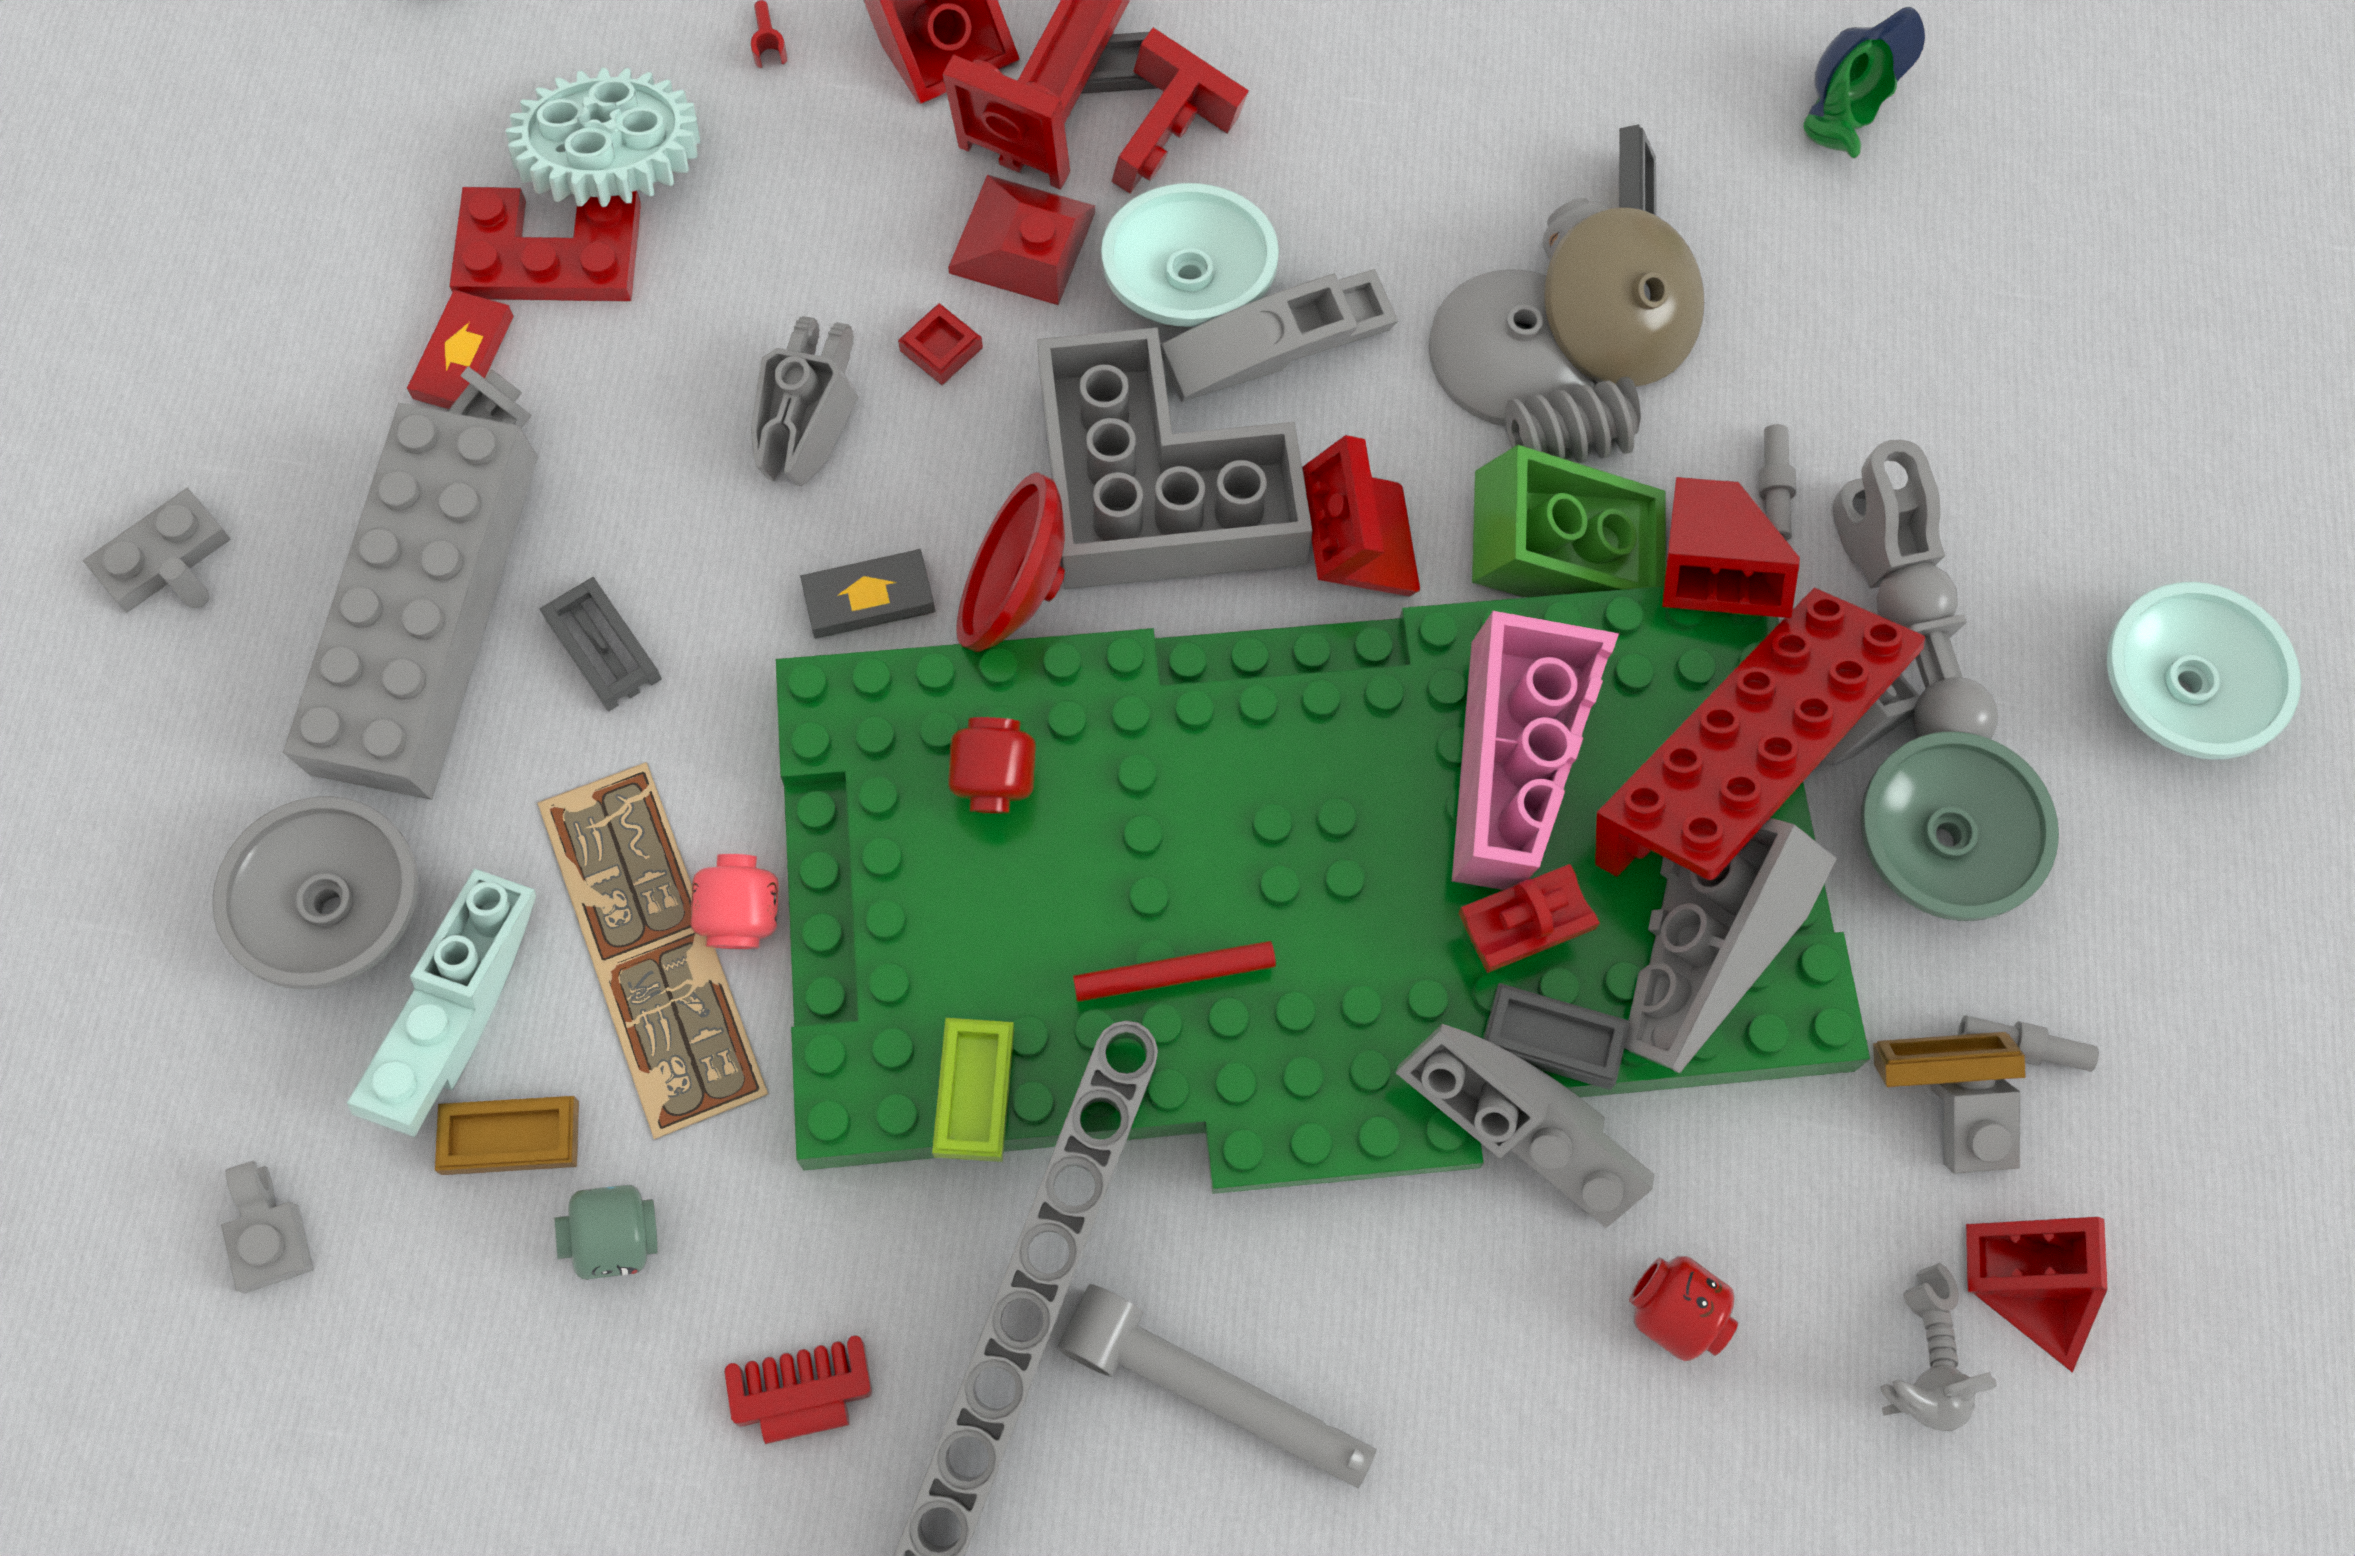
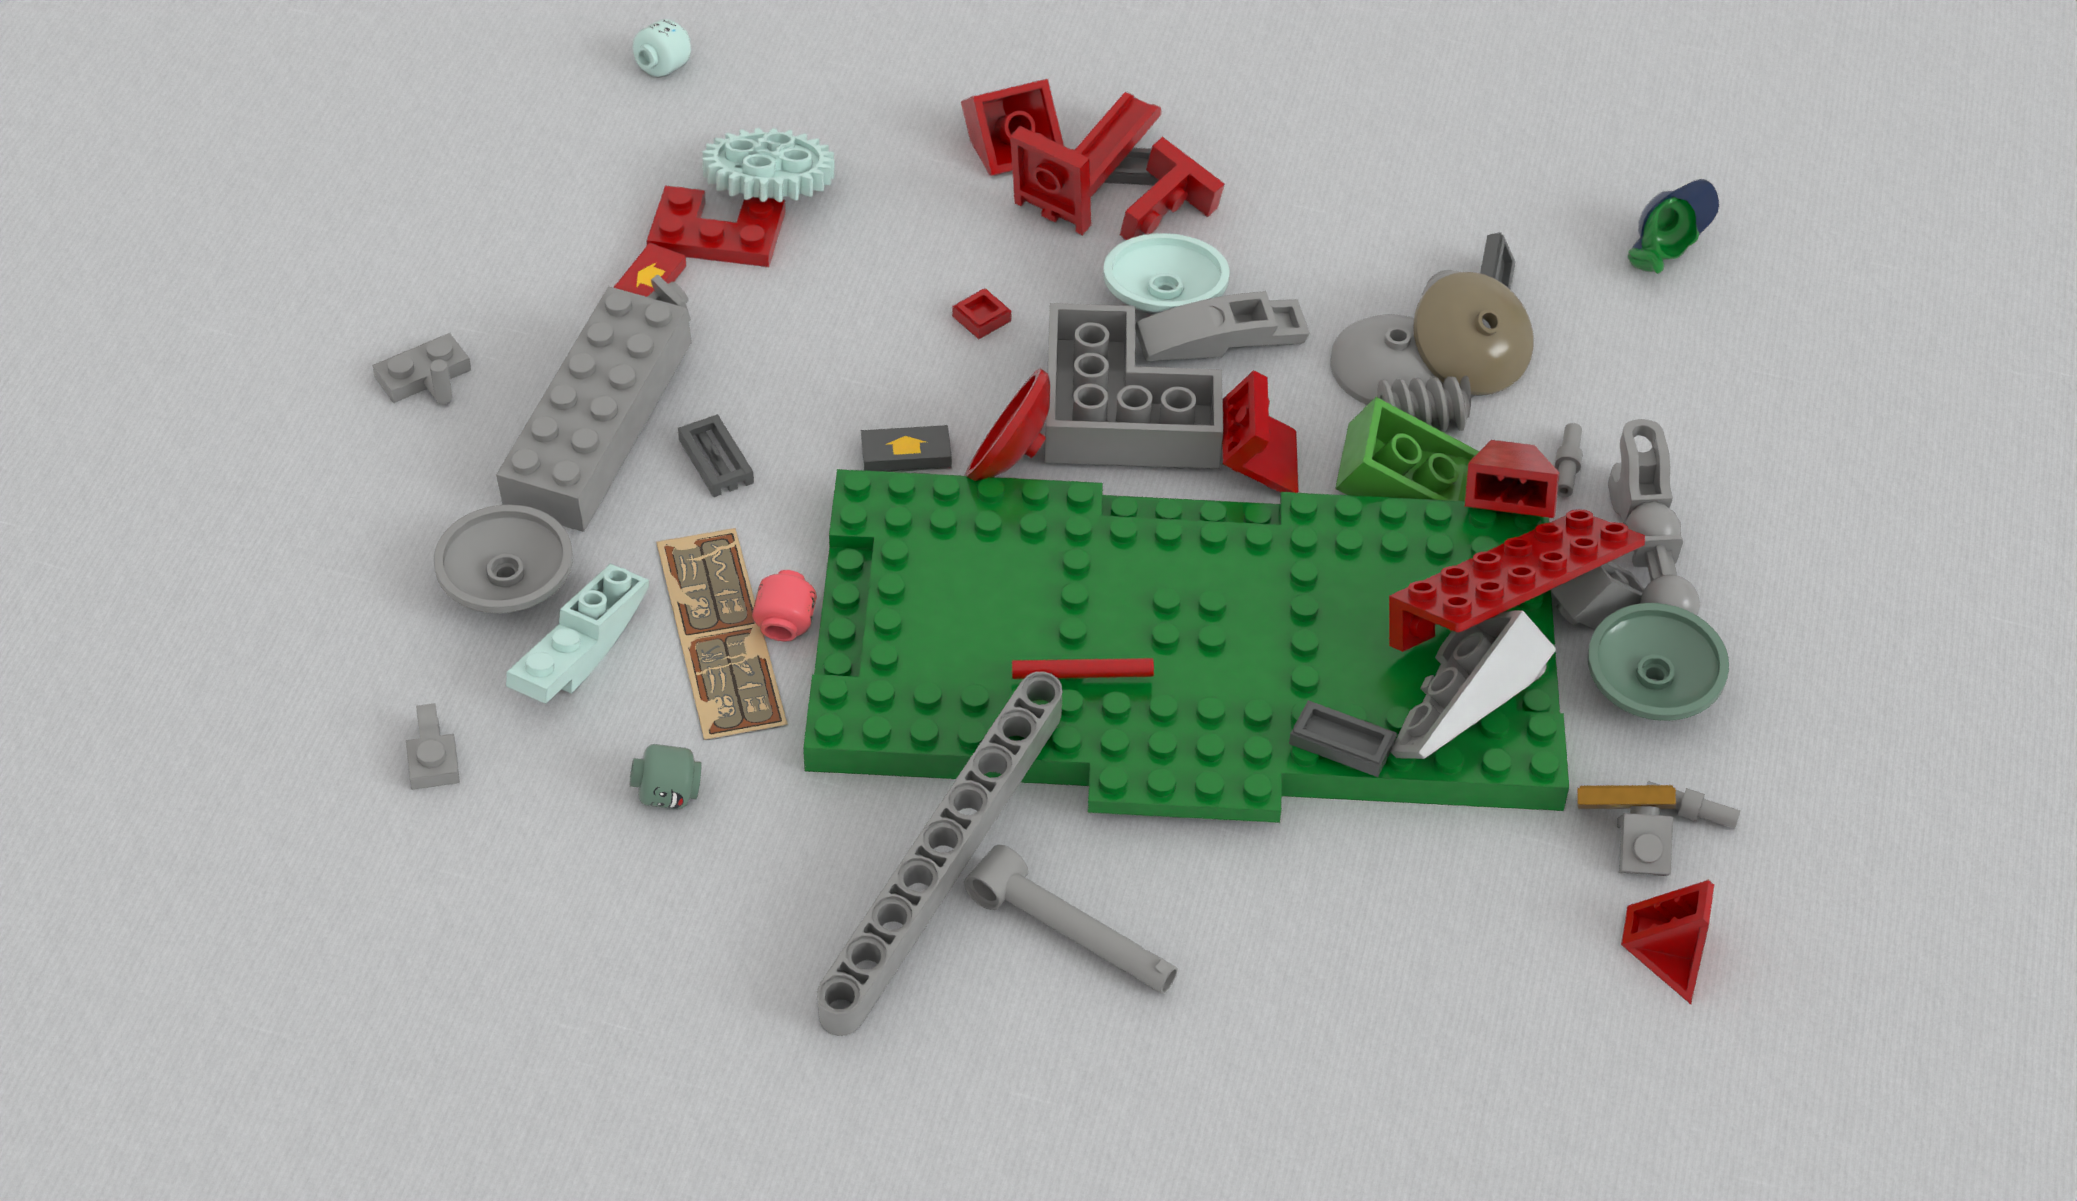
camera: 10 degrees right, 20 degrees down
(507, 1135) = (605, 722): pearl gold tile -> none
(766, 36) = (890, 124): red hand -> none
(800, 1407) = (784, 897): red piece -> none
(802, 402) = (880, 329): light grey hinge -> none
(973, 1090) = (932, 717): lime tile -> none
(991, 764) = (976, 532): red head -> none
(1022, 239) = (1050, 261): red slope -> none
(1521, 735) = (1352, 552): bright pink wedge -> none
(1527, 1111) = (1315, 782): light grey slope -> none
(1528, 918) = (1333, 660): red hips -> none
(1684, 1308) = (1409, 914): red head -> none
(1941, 1395) = (1589, 983): light grey piece -> none
(2227, 653) = (1855, 594): light aqua dish -> none

